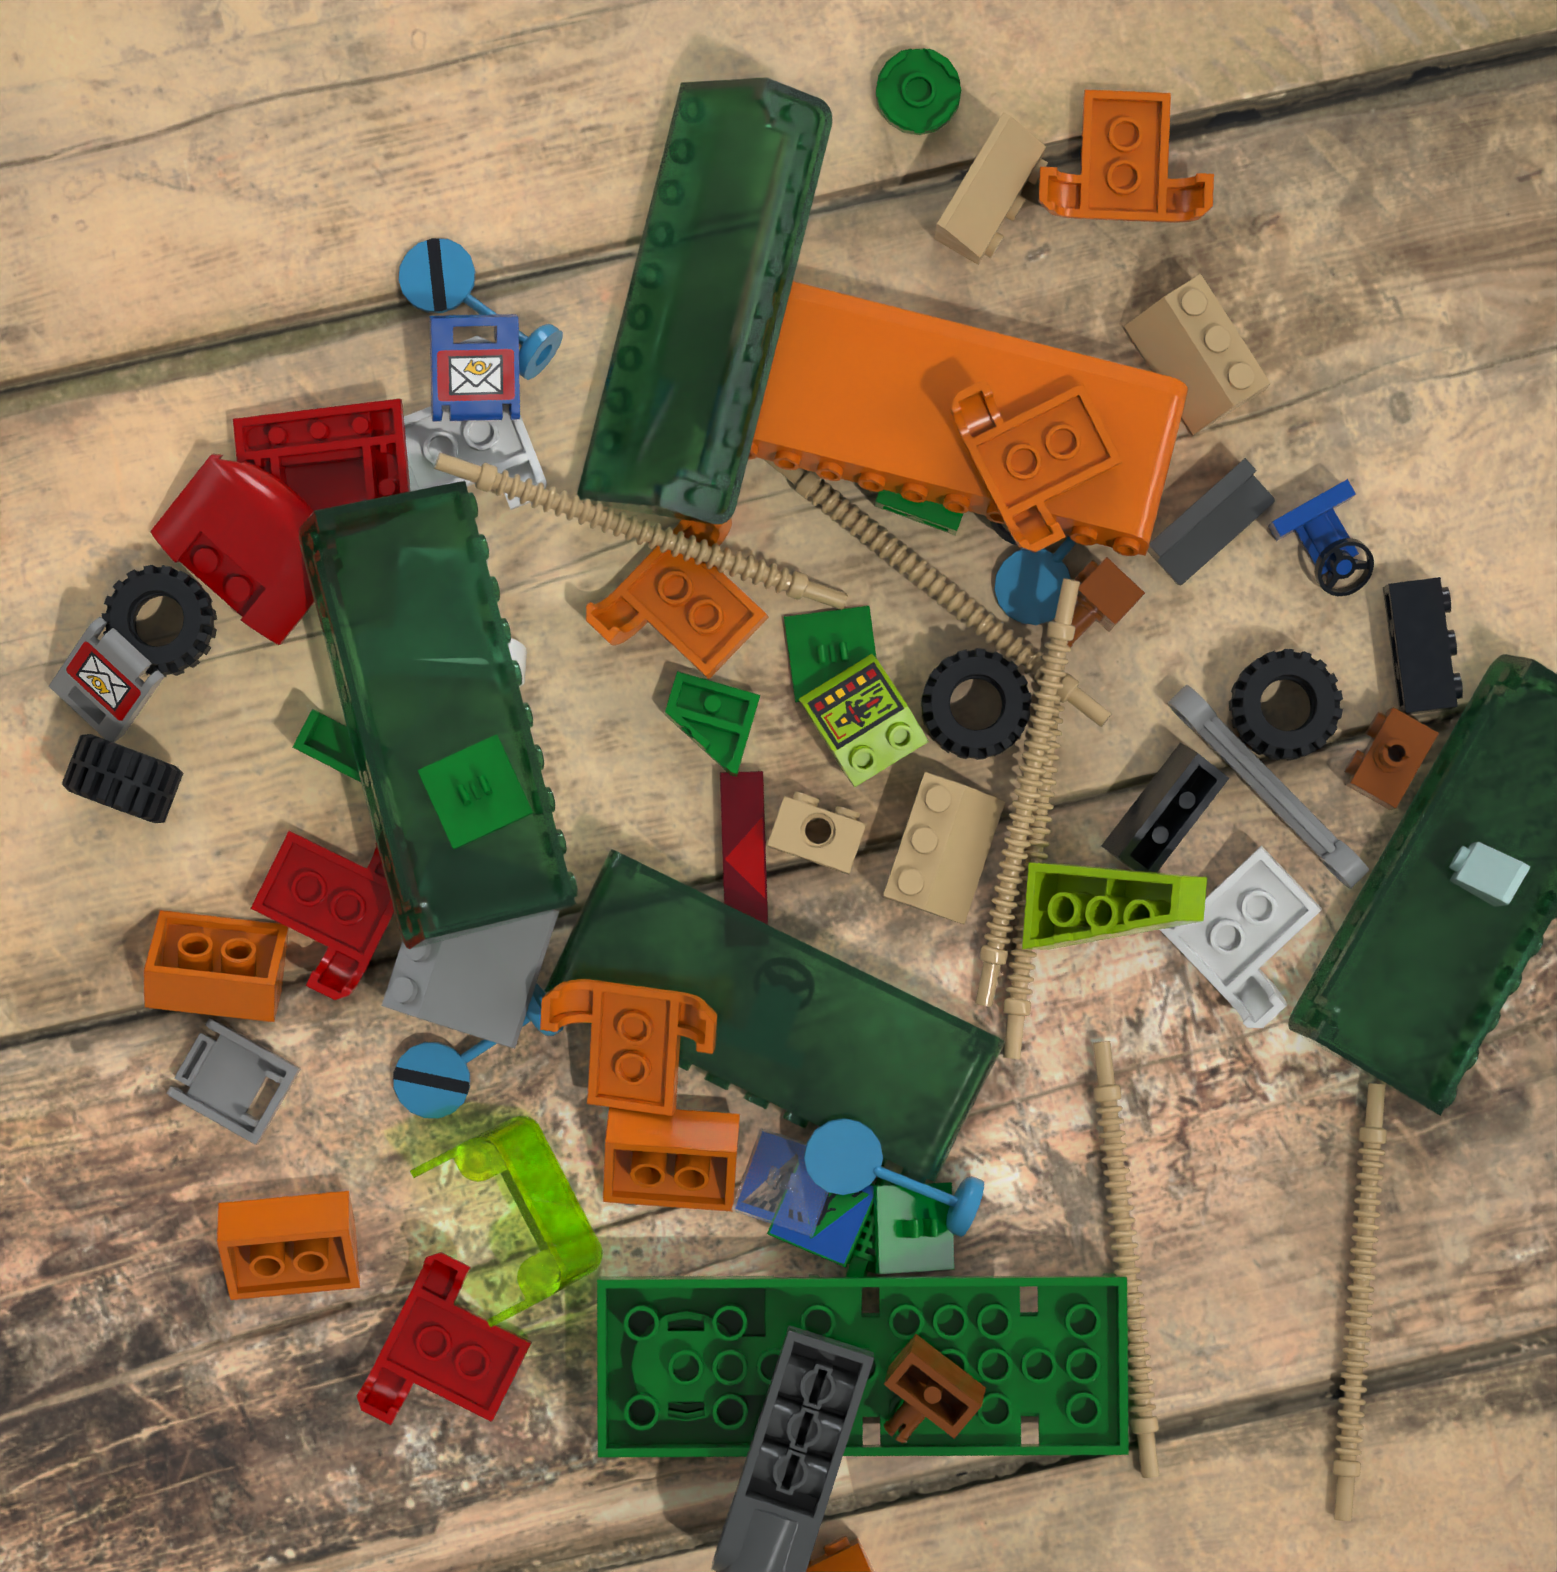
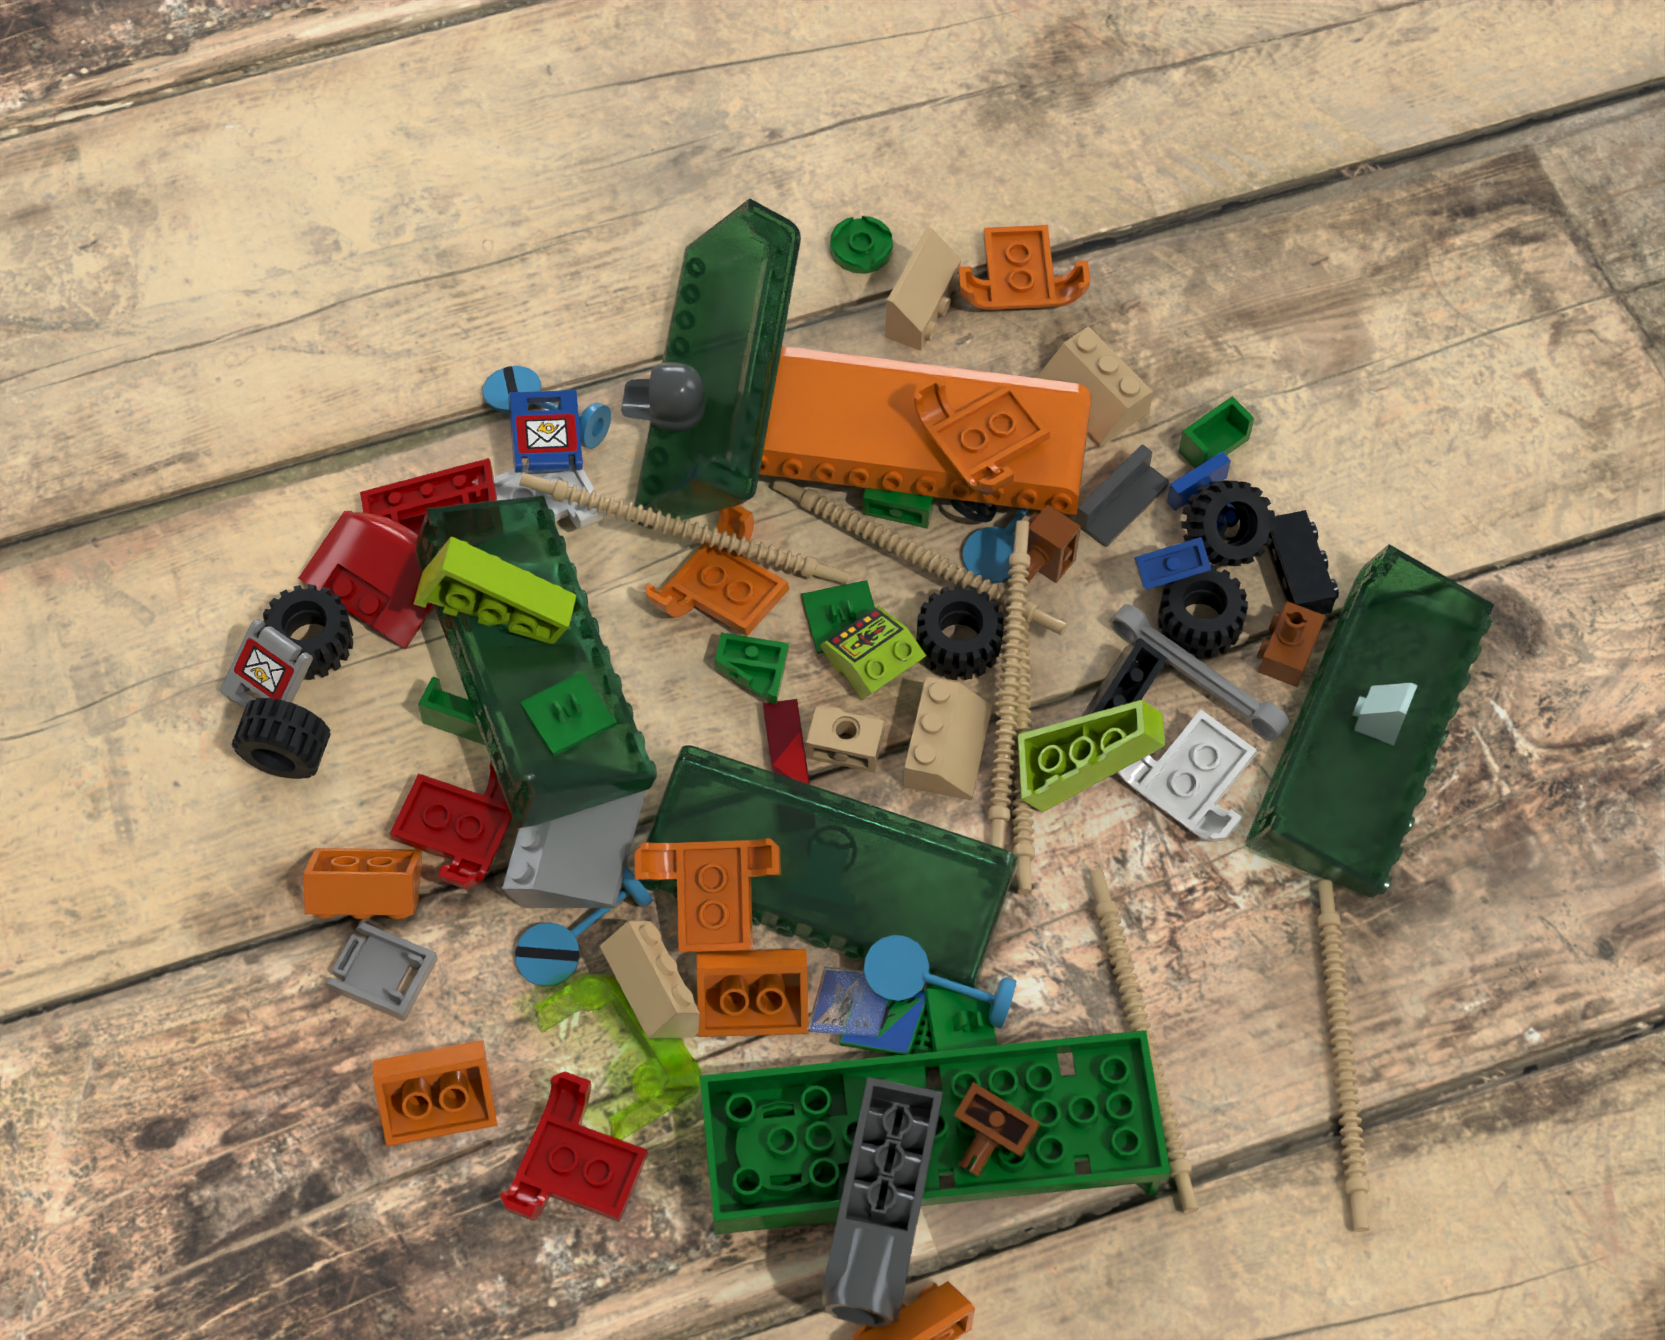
camera: 10 degrees left, 25 degrees down
(395, 632) = (495, 591): none -> lime wedge
(548, 1149) = (651, 981): none -> tan slope
(633, 332) = (669, 399): none -> dark grey piece
(1253, 646) = (1172, 563): none -> blue piece
(1345, 445) = (1217, 431): none -> green panel
(1349, 616) = (1253, 515): none -> black tyre

